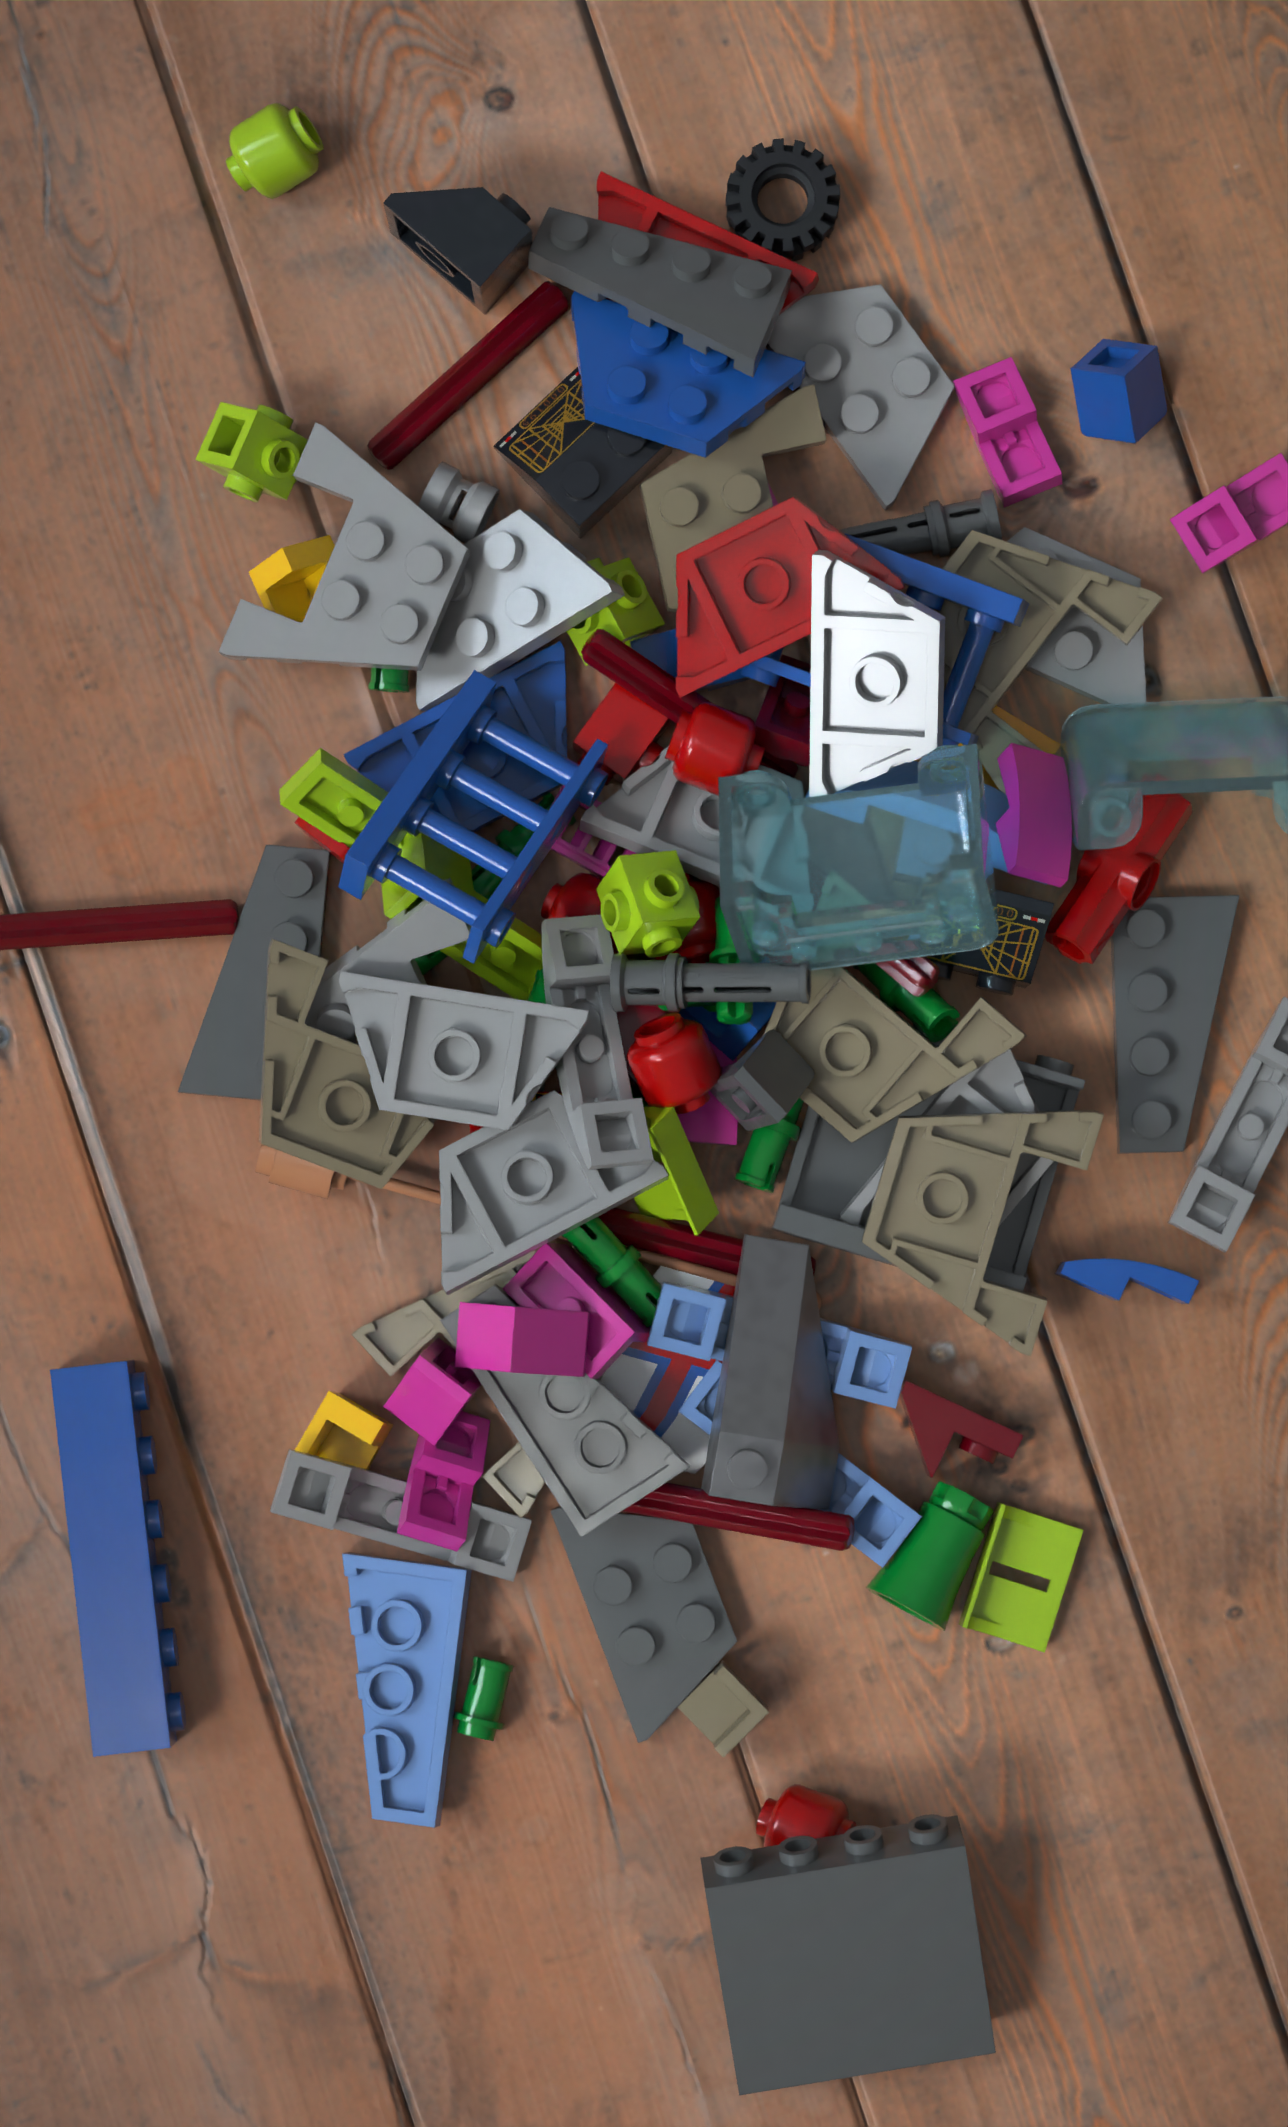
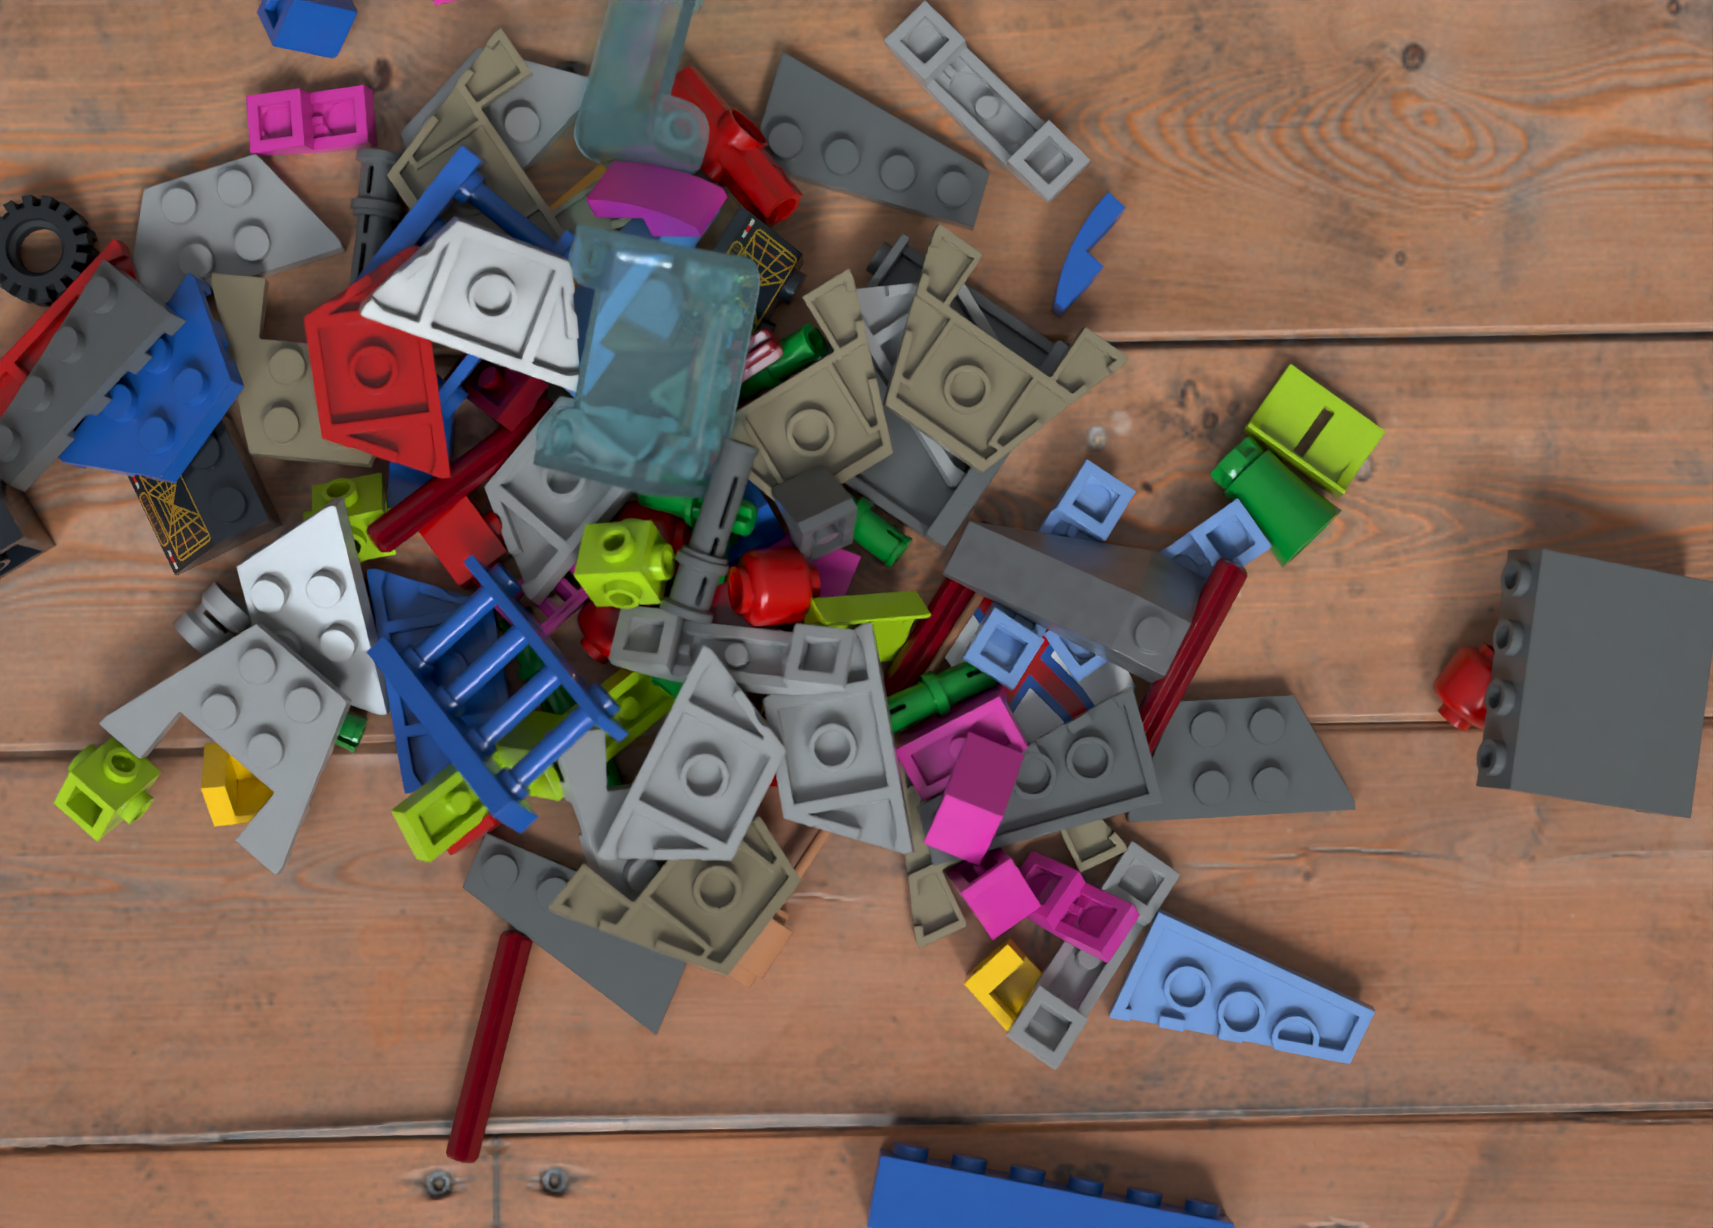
camera: 80 degrees left, 0 degrees up
(468, 375) = (104, 576): dark red axle -> none
(484, 1699) = (1274, 932): green pin -> none
(712, 745) = (502, 462): red head -> none
(723, 1708) = (1349, 724): dark tan panel -> none
(936, 1419) = (1157, 460): dark red slope -> none

